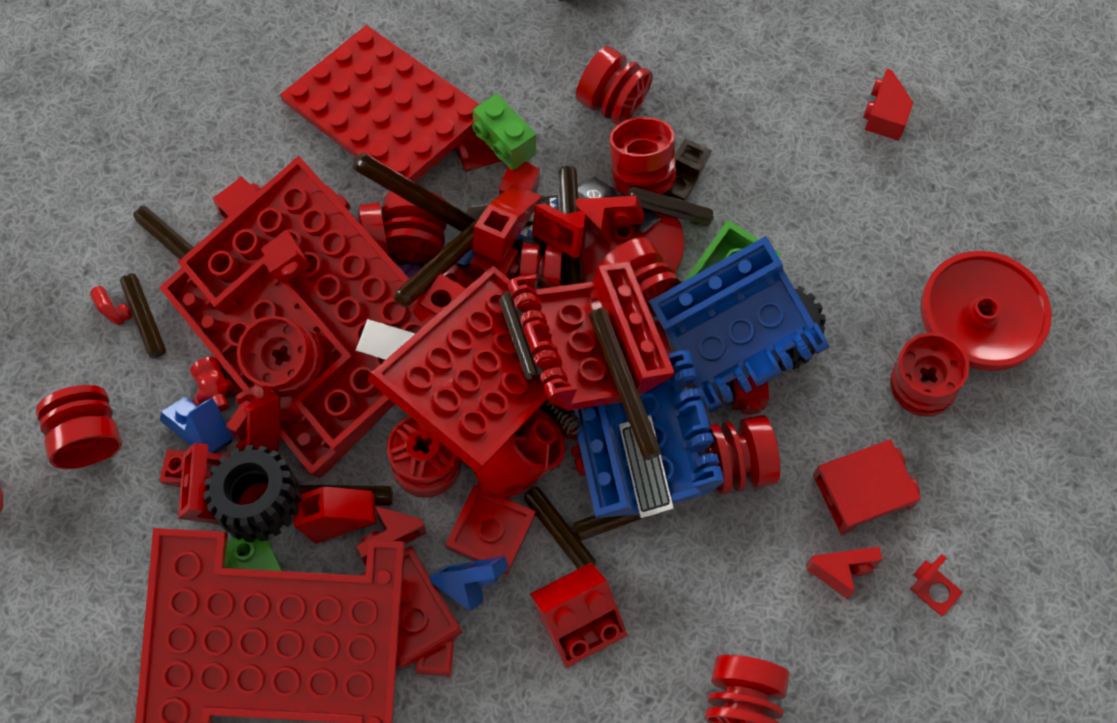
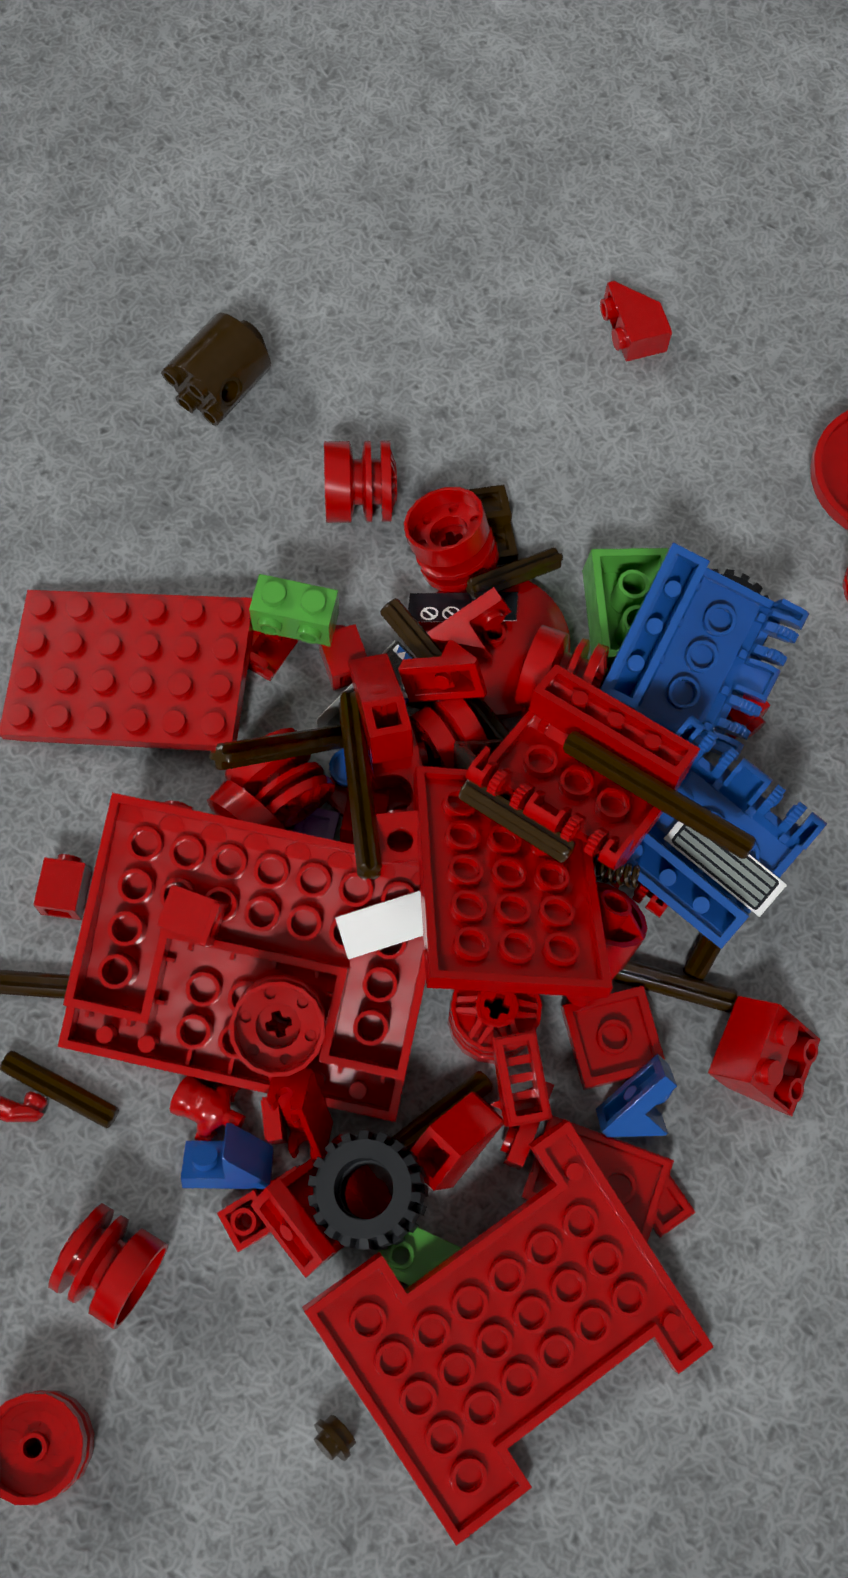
camera: 40 degrees left, 5 degrees up
(119, 629) = (334, 1438): none -> dark brown plate
(389, 493) = (539, 1092): none -> red slope
(747, 453) = (803, 768): red wheel -> none

